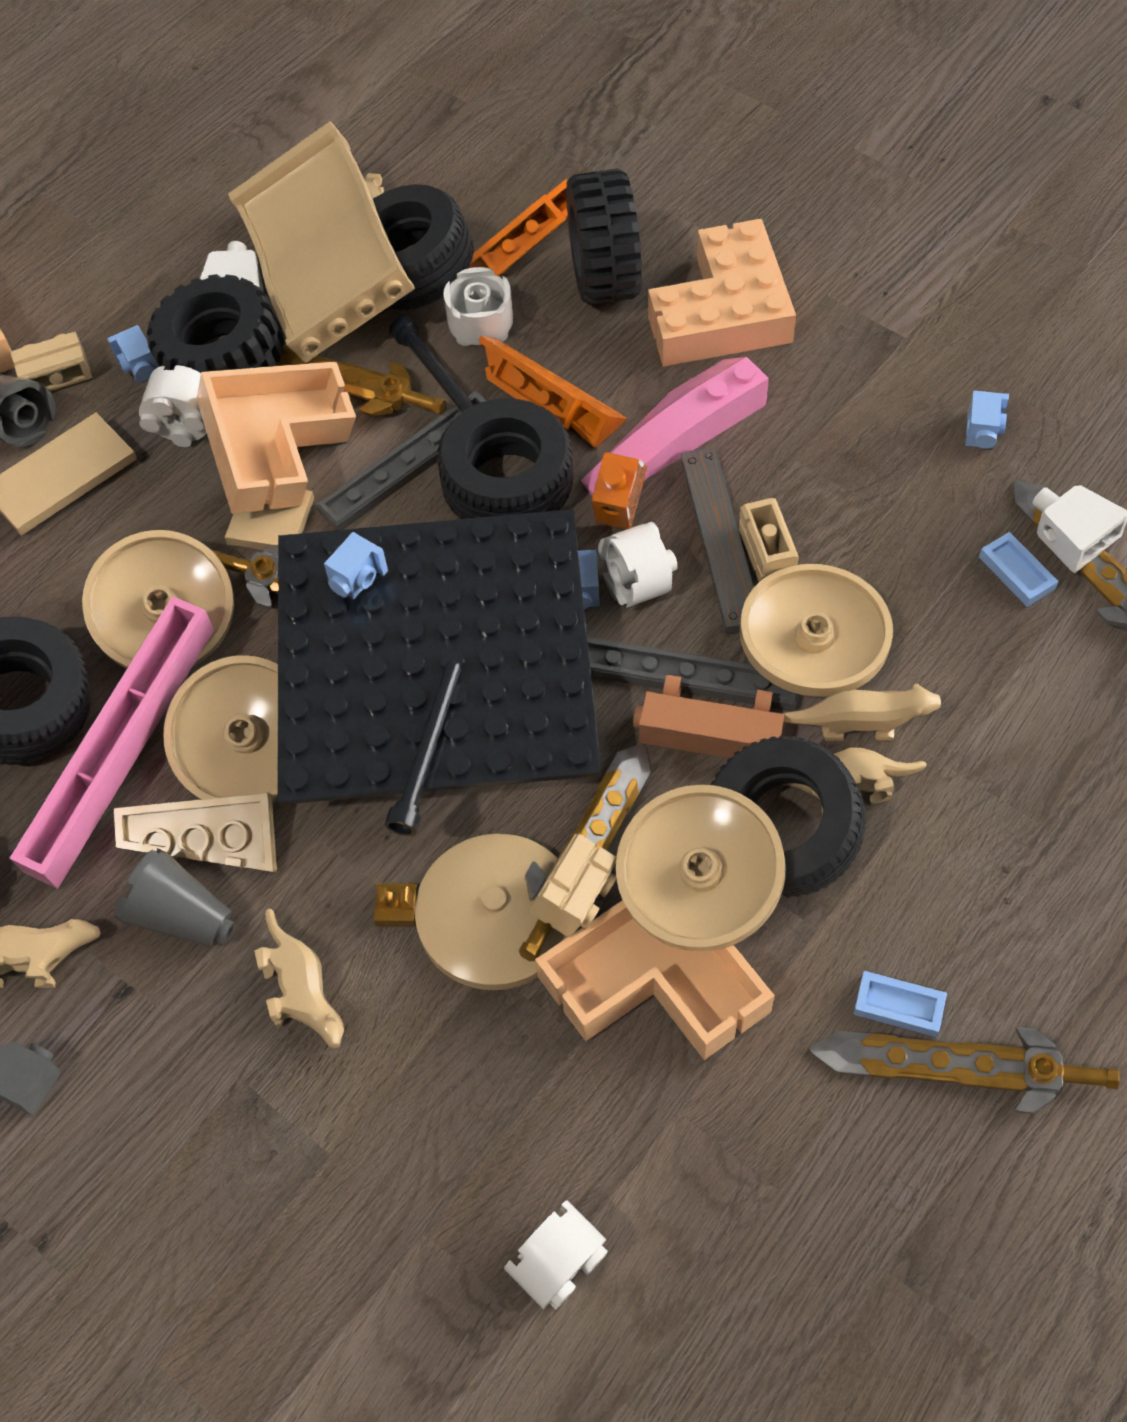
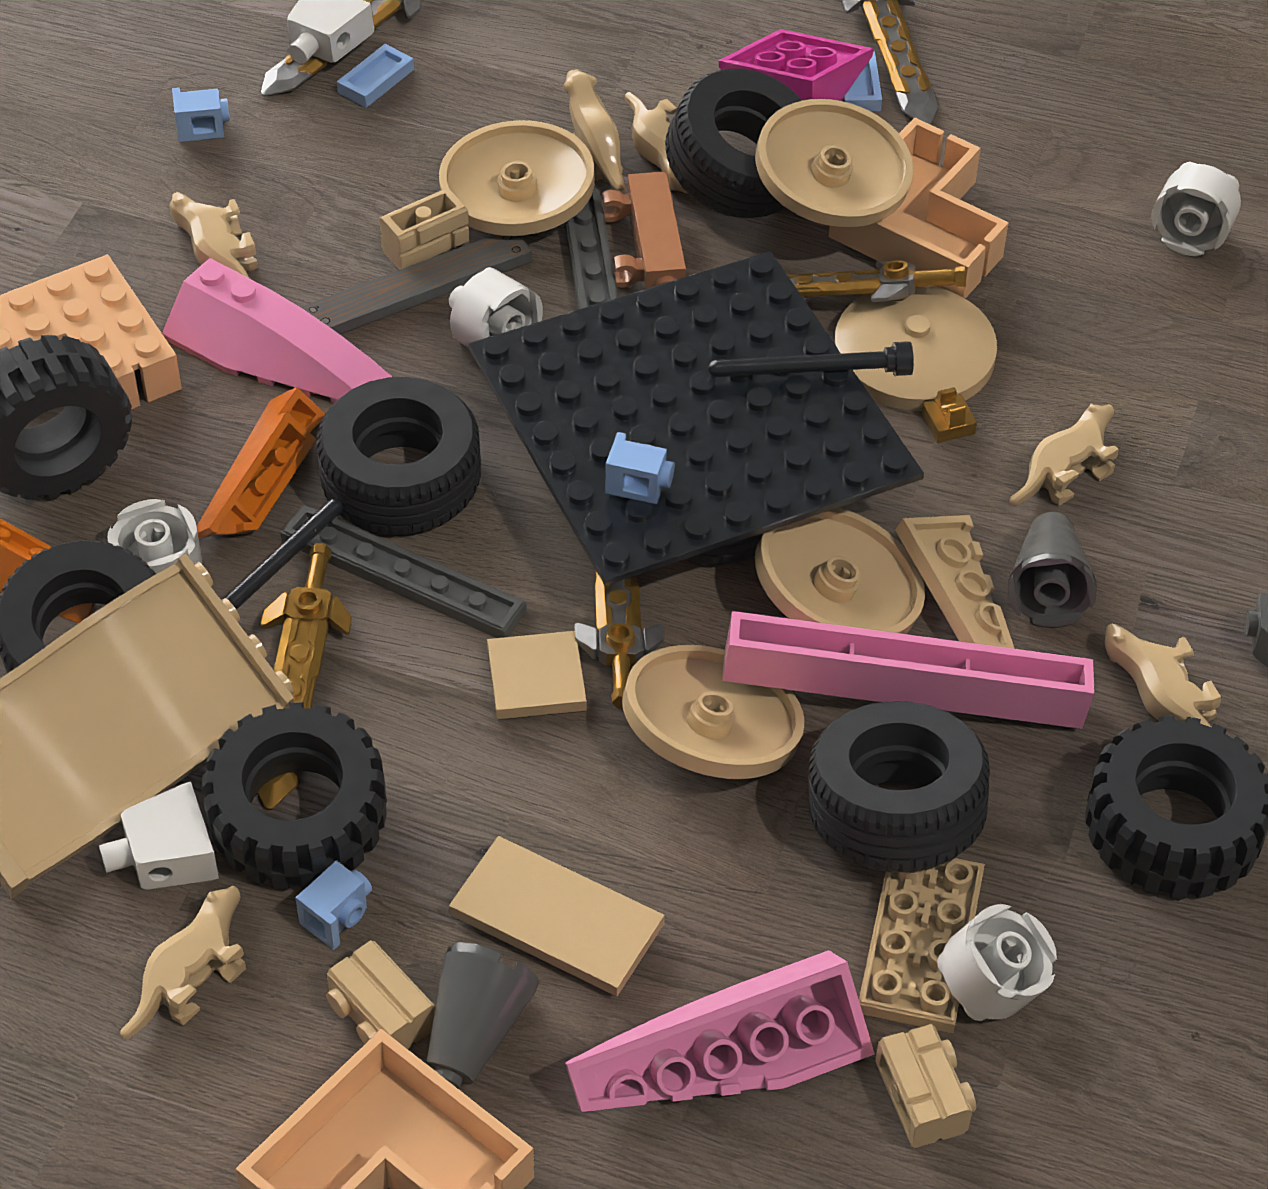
camera: 115 degrees left, 10 degrees down
(138, 273) = (188, 961): none -> tan animal
(172, 406) = (419, 797): white brick -> none
(259, 421) = (443, 679): light nougat piece -> none
(574, 885) = (891, 245): tan brick -> none
(618, 487) = (400, 342): orange torso -> none
(817, 405) = (214, 233): none -> tan animal
(921, 934) = (804, 63): none -> dark pink slope

